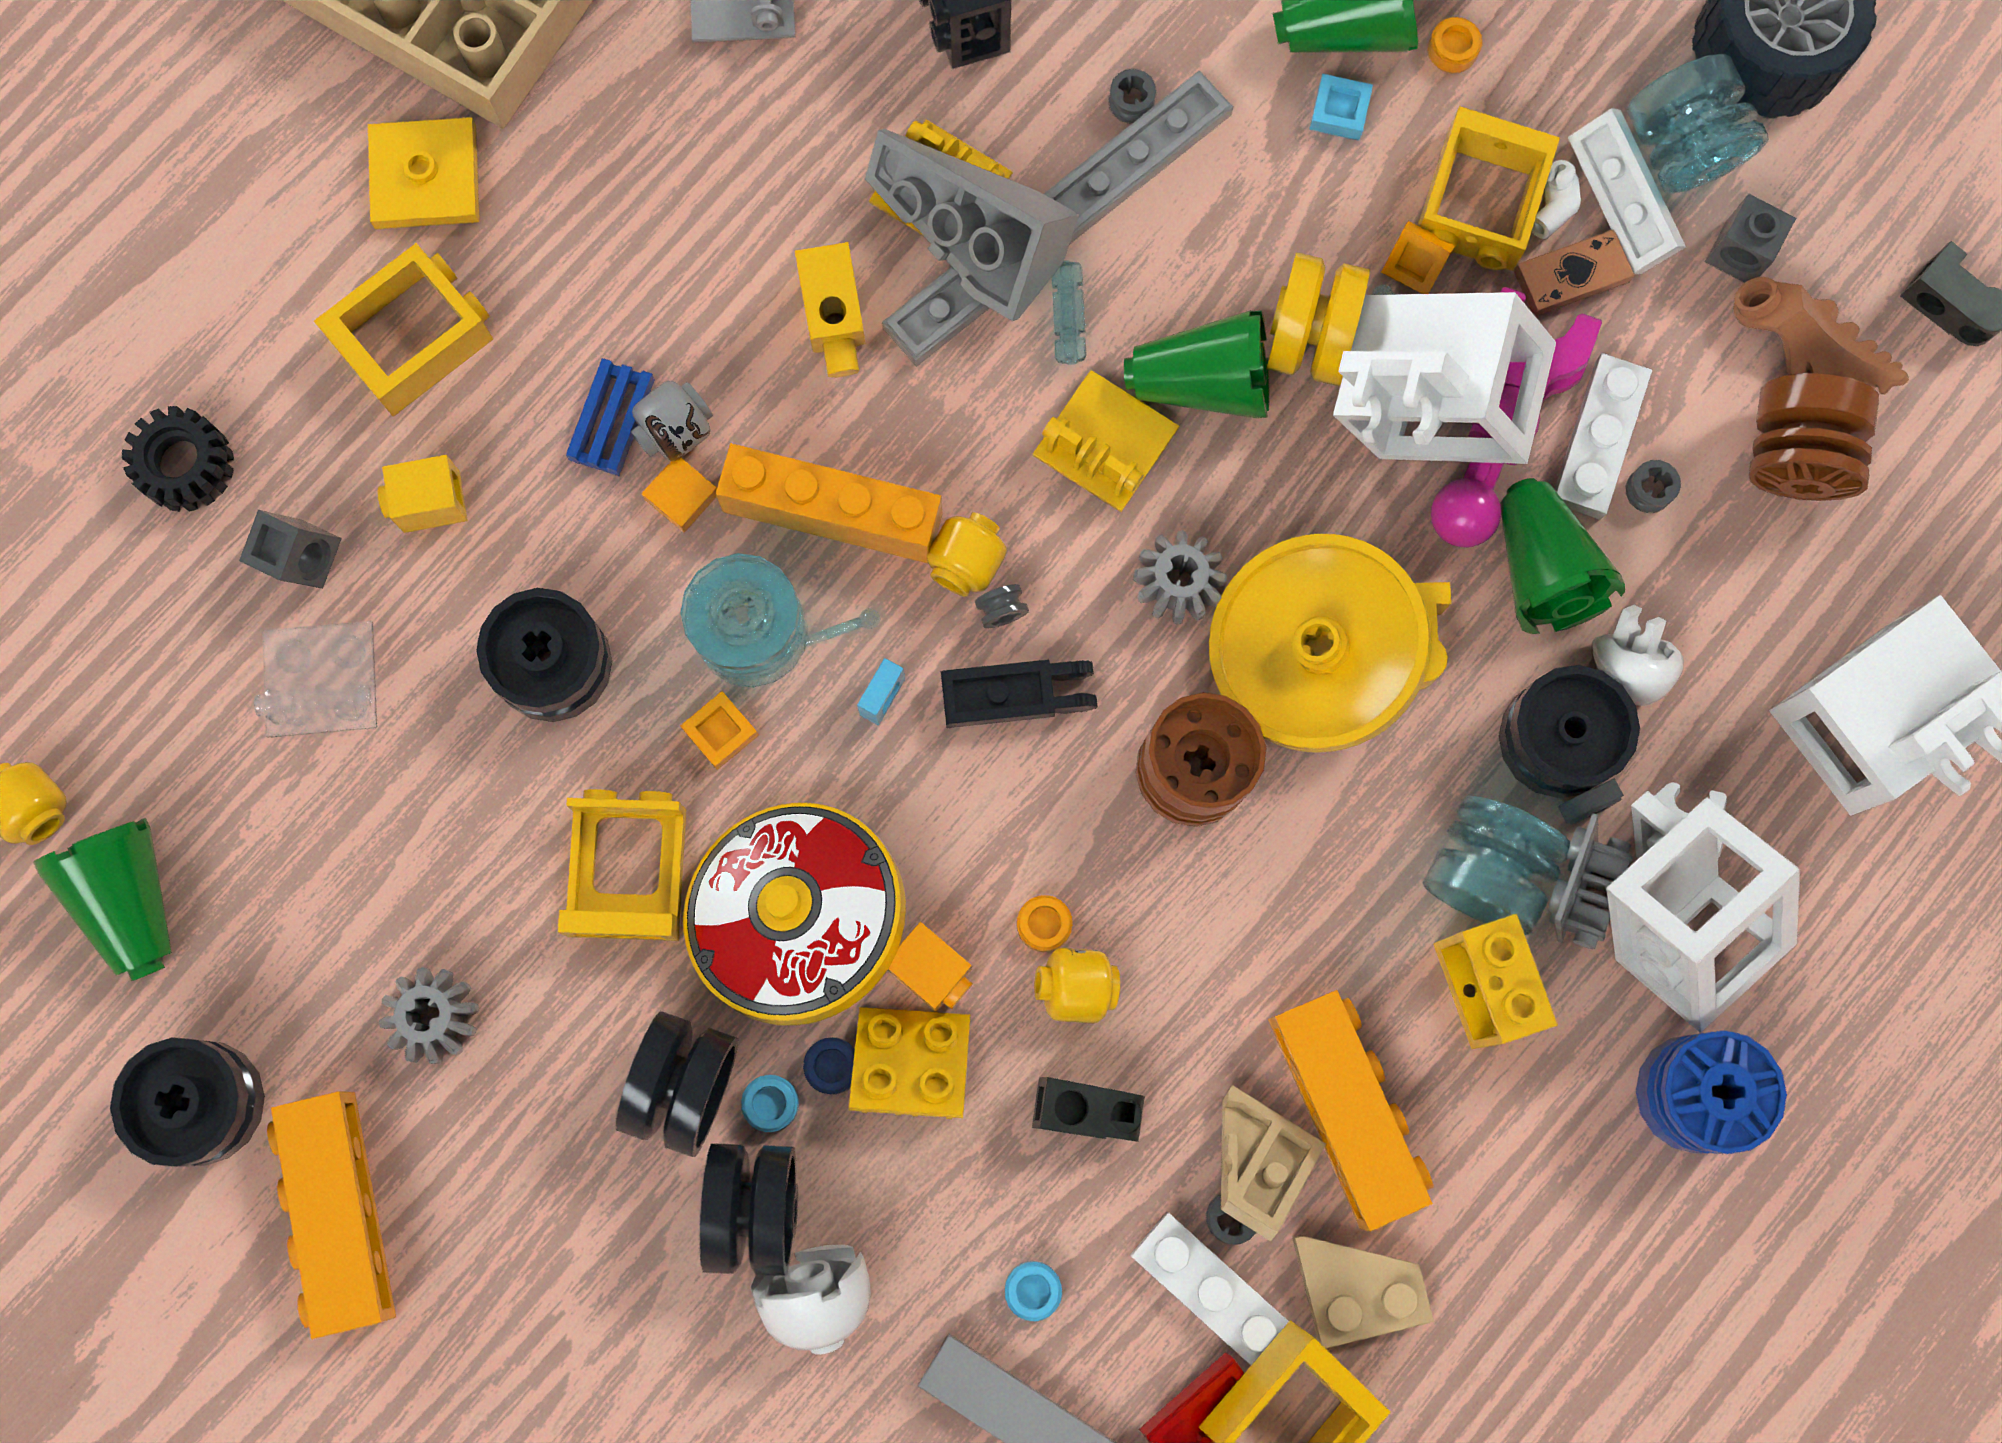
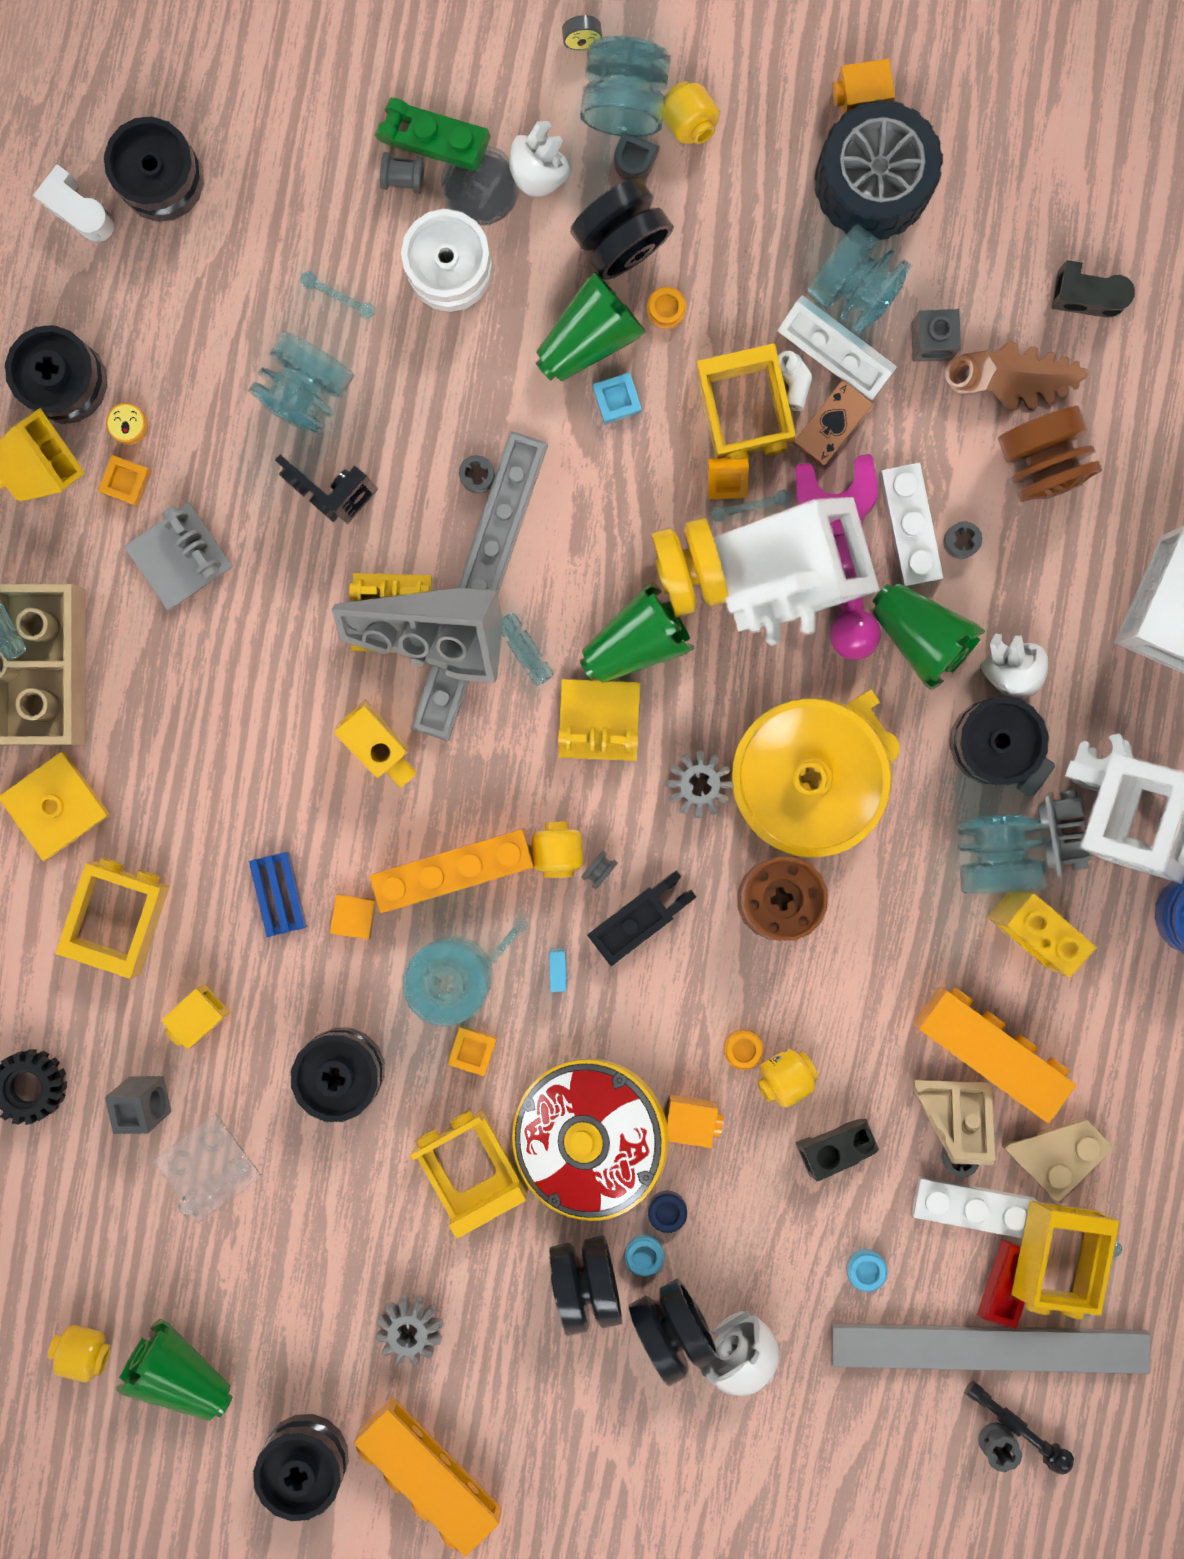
camera: 30 degrees left, 10 degrees up
(671, 420) = (319, 877): light grey head -> none
(910, 1063) = (714, 1184): yellow hinge -> none

